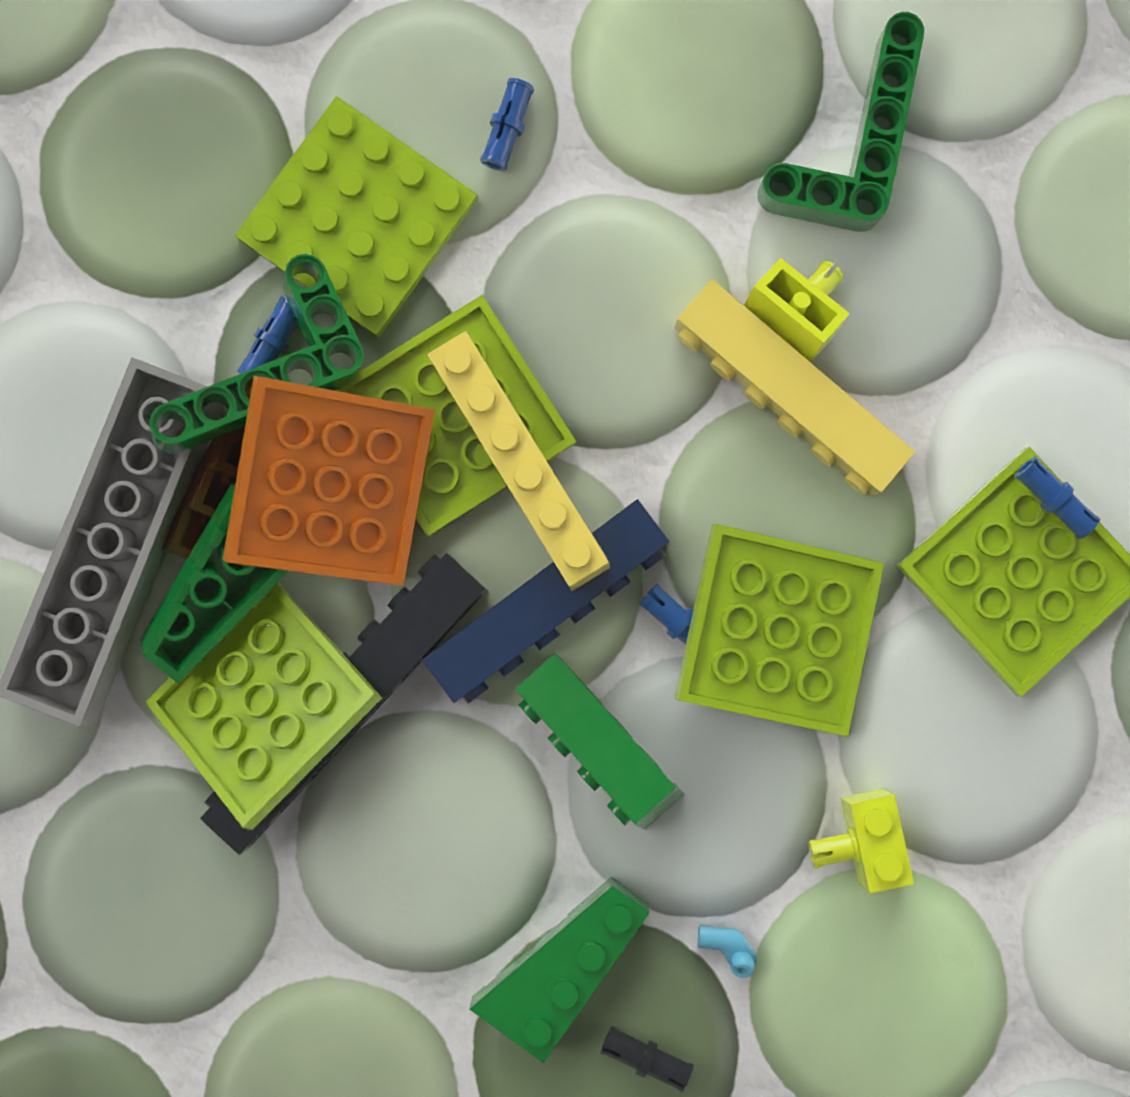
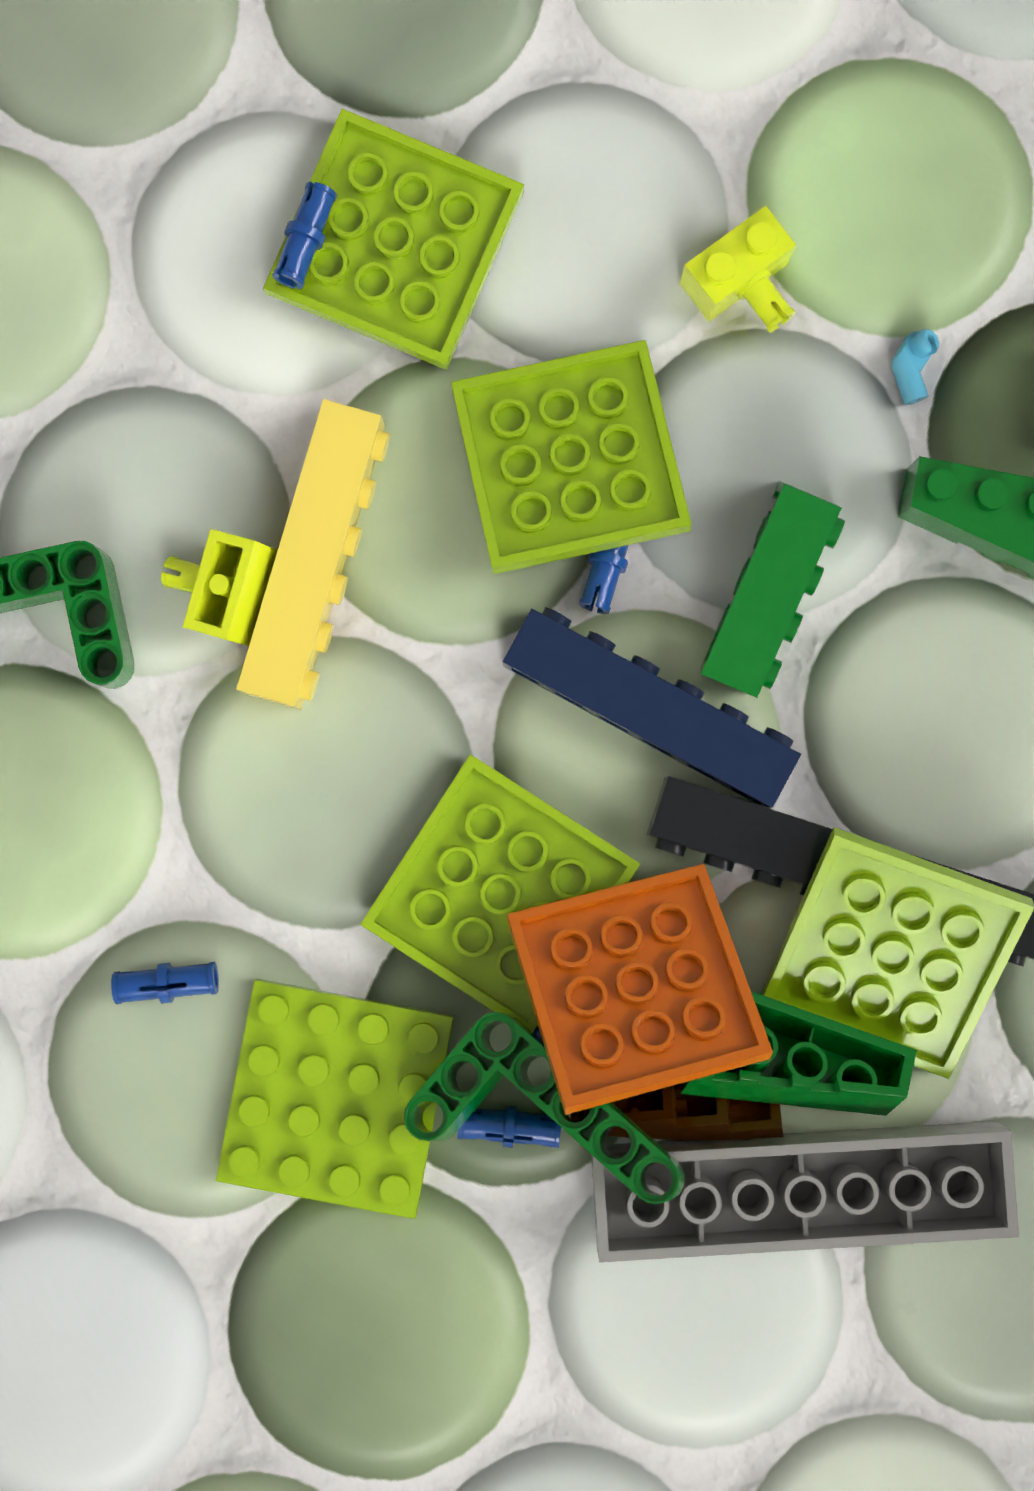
camera: 110 degrees left, 0 degrees up
(519, 461) = (521, 800): light yellow brick -> none

